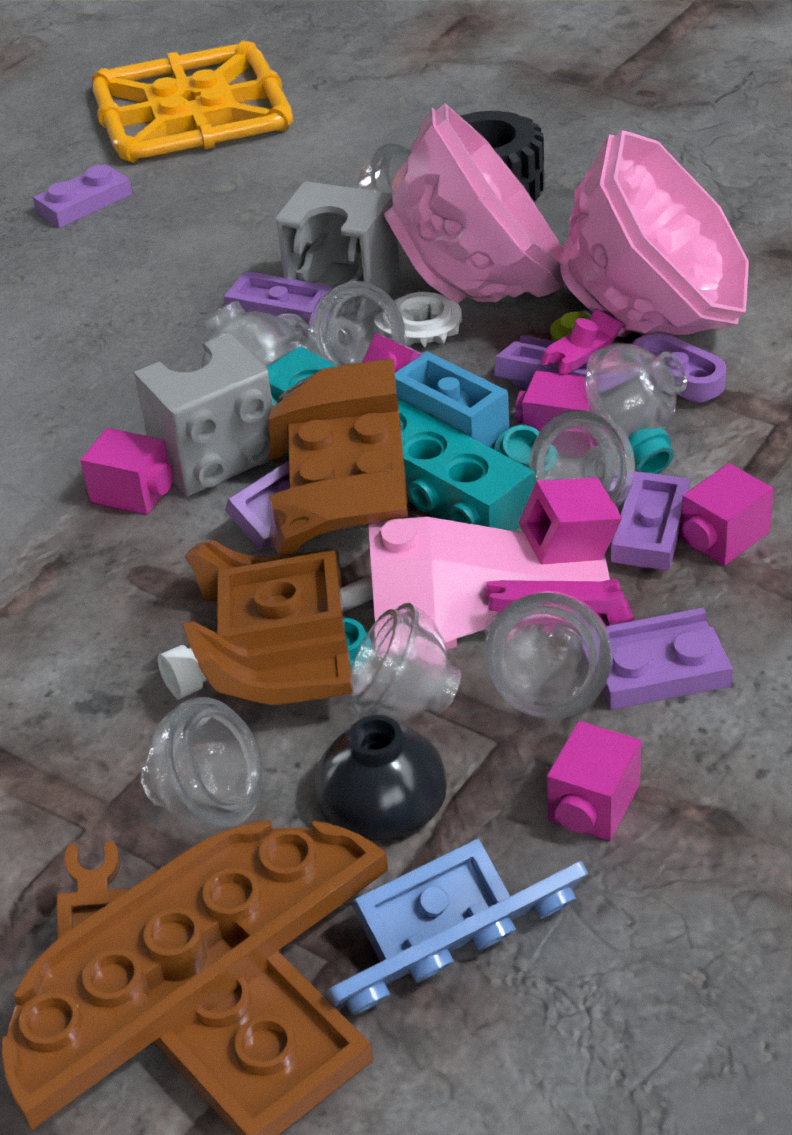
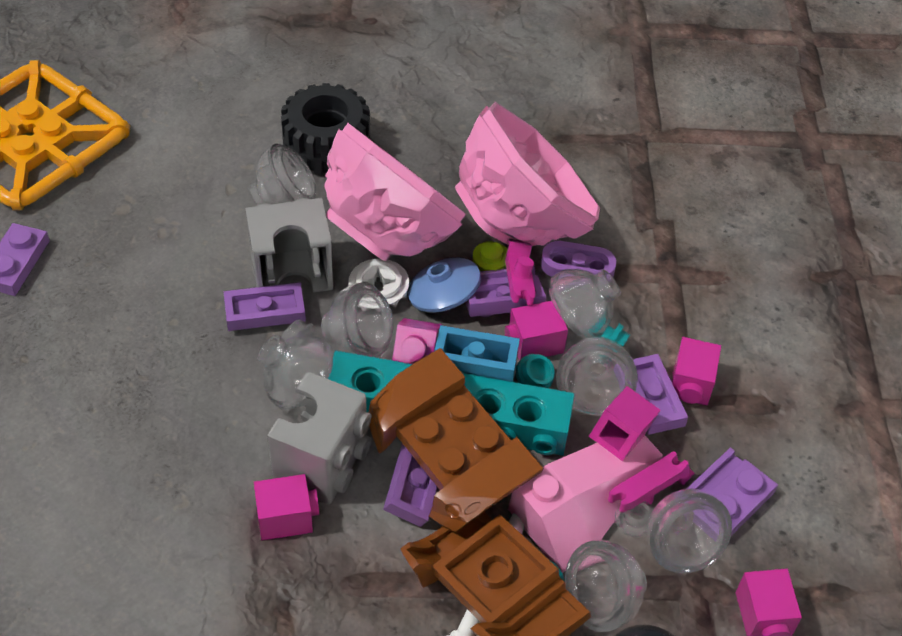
camera: 40 degrees left, 10 degrees up
(492, 334) = (444, 285): none -> medium blue dish

